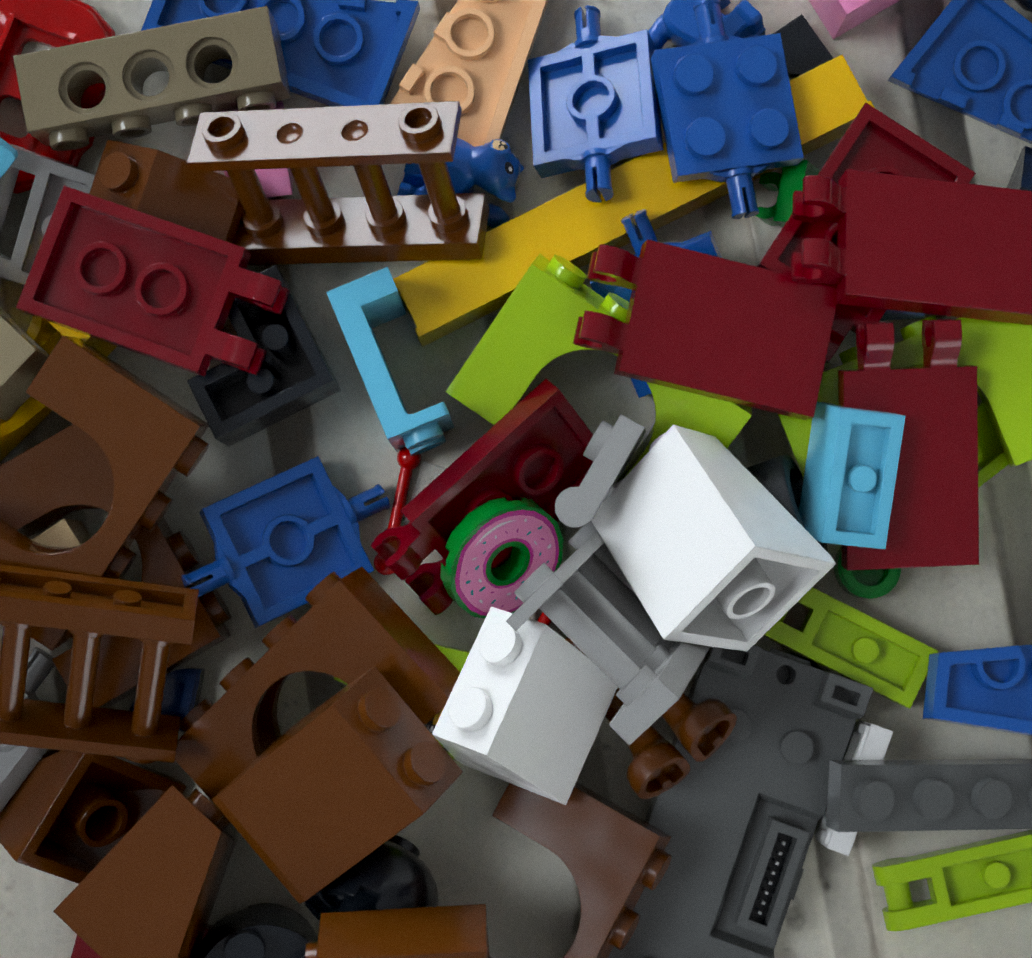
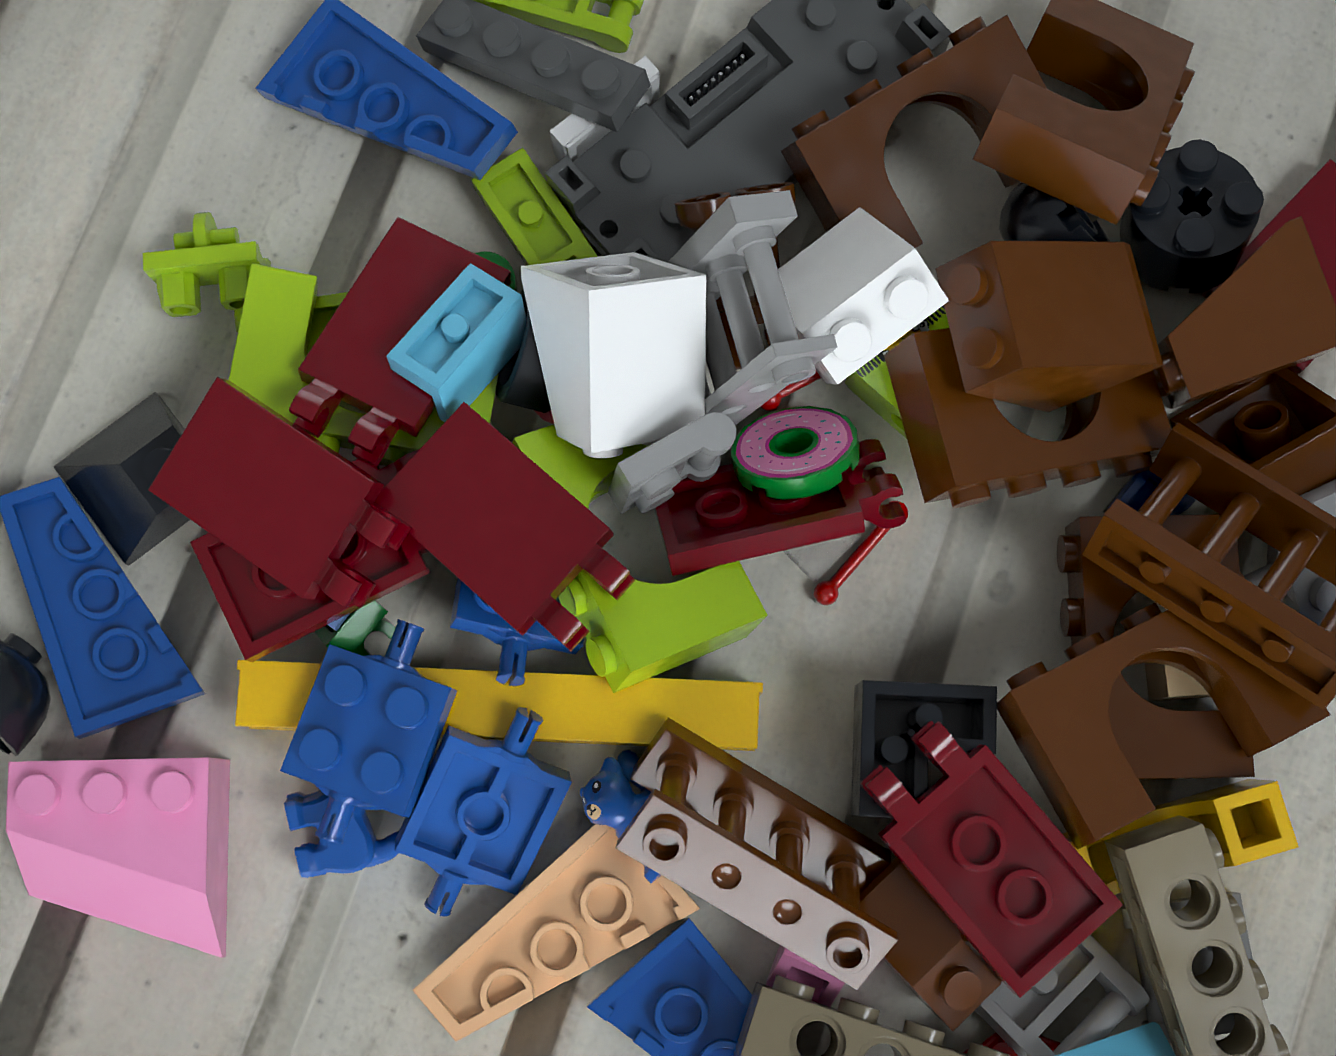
camera: 150 degrees left, 5 degrees down
(284, 539) = (977, 571): blue plate -> none
(358, 309) = (824, 613): medium azure panel -> none
(802, 47) = (262, 764): black tile -> none

